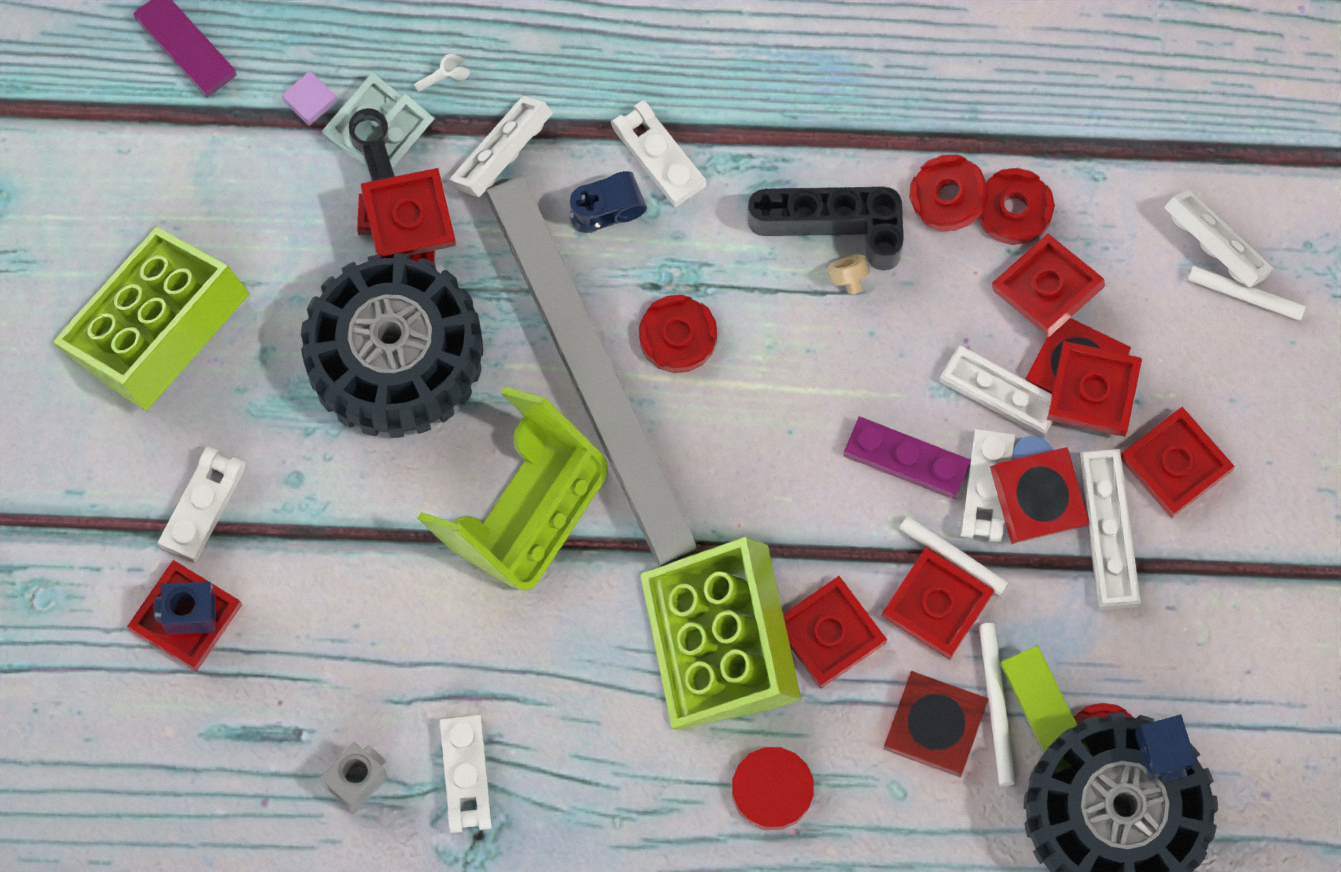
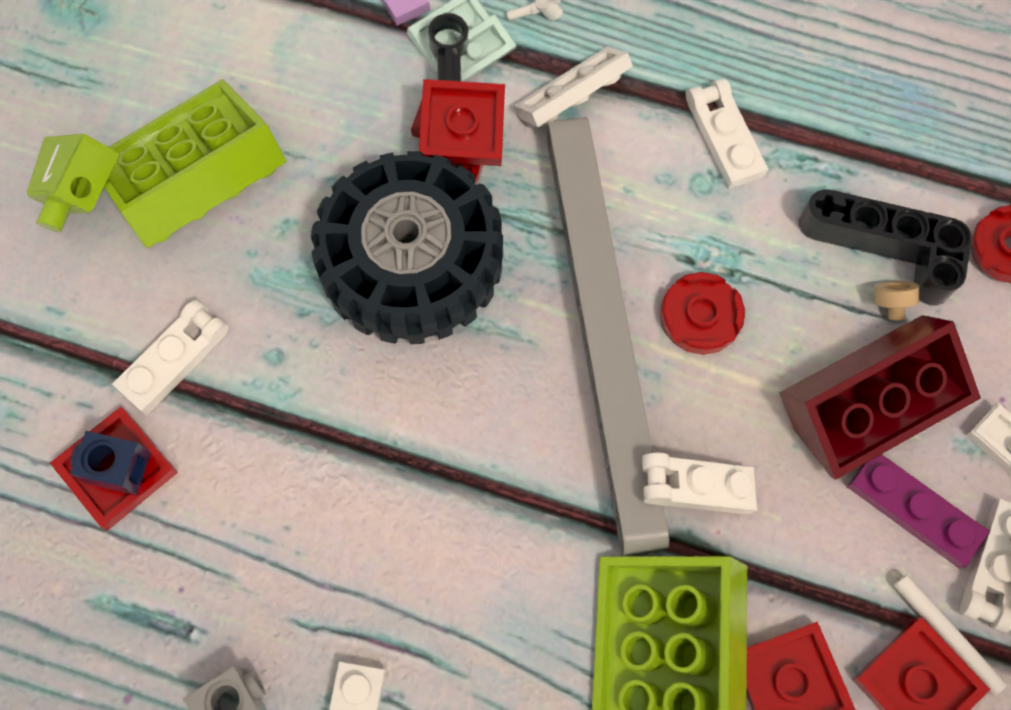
camera: 15 degrees right, 0 degrees up
(52, 363) = (69, 177): none -> lime torso
(538, 505) = (512, 451): lime windscreen -> none
(608, 202) = (665, 163): dark blue piece -> none
(709, 487) = (699, 484): none -> white plate
(852, 365) = (881, 394): none -> dark red slope

